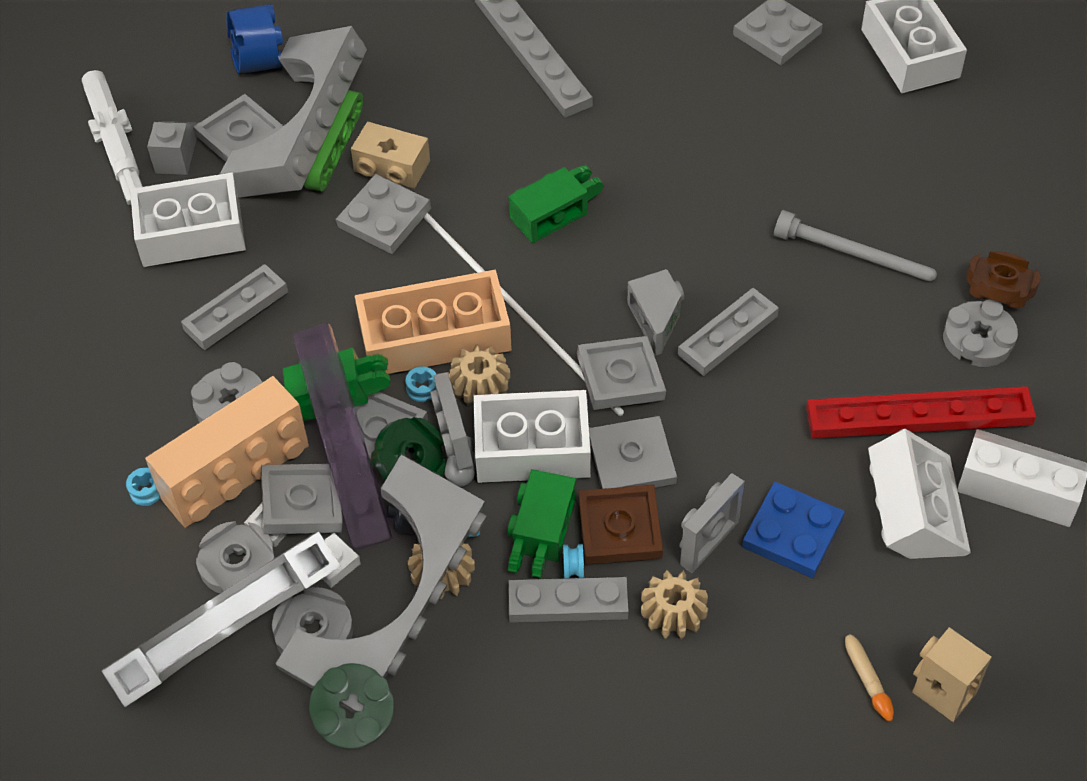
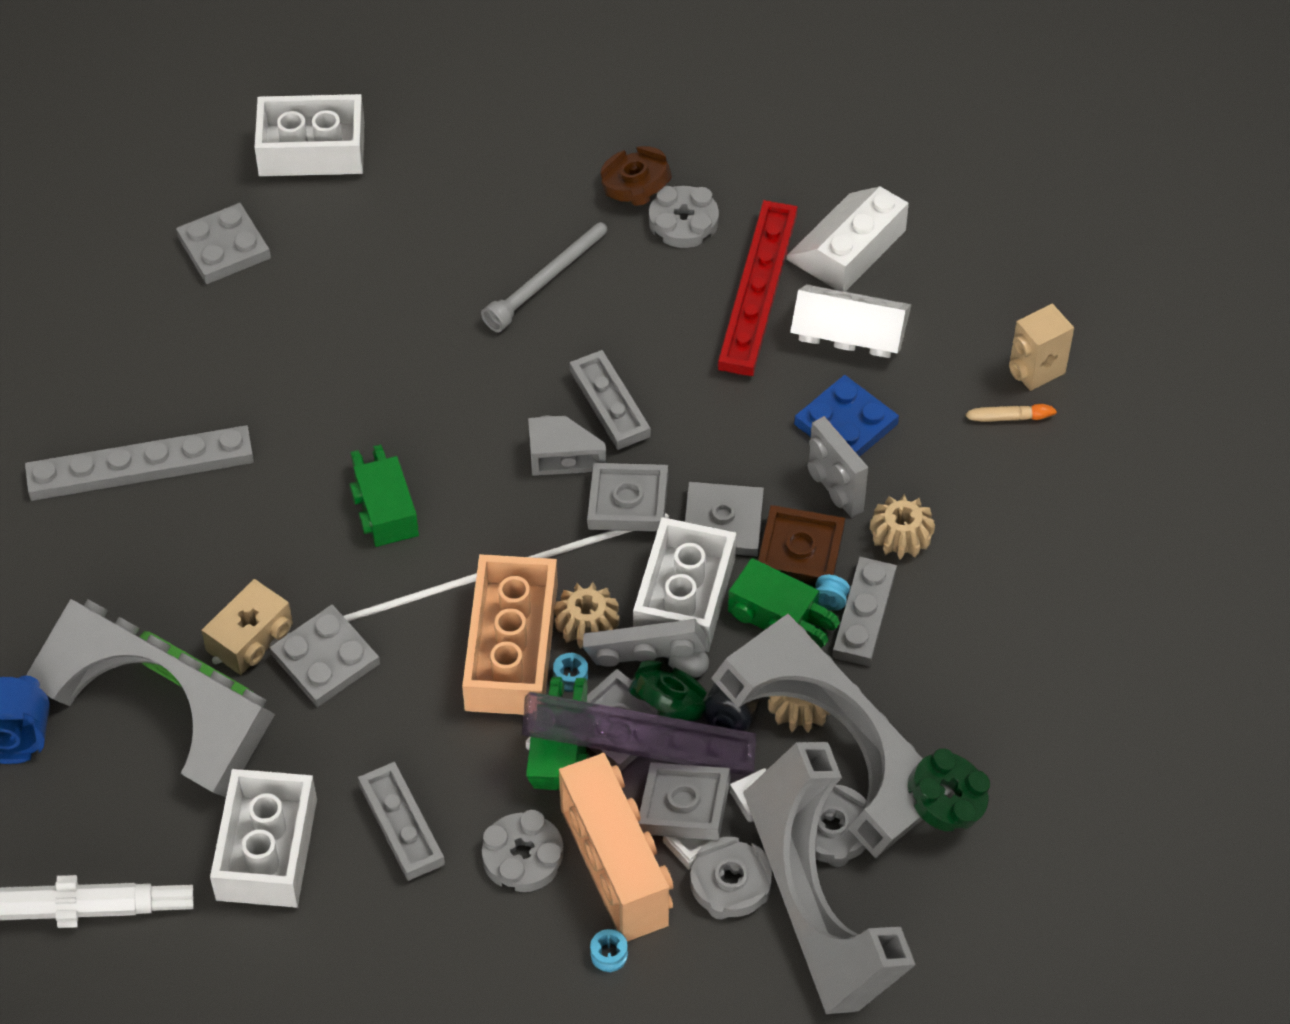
camera: 75 degrees left, 0 degrees up
(172, 146) = (124, 839): light grey slope -> none
(236, 127) = (136, 769): light grey plate -> none

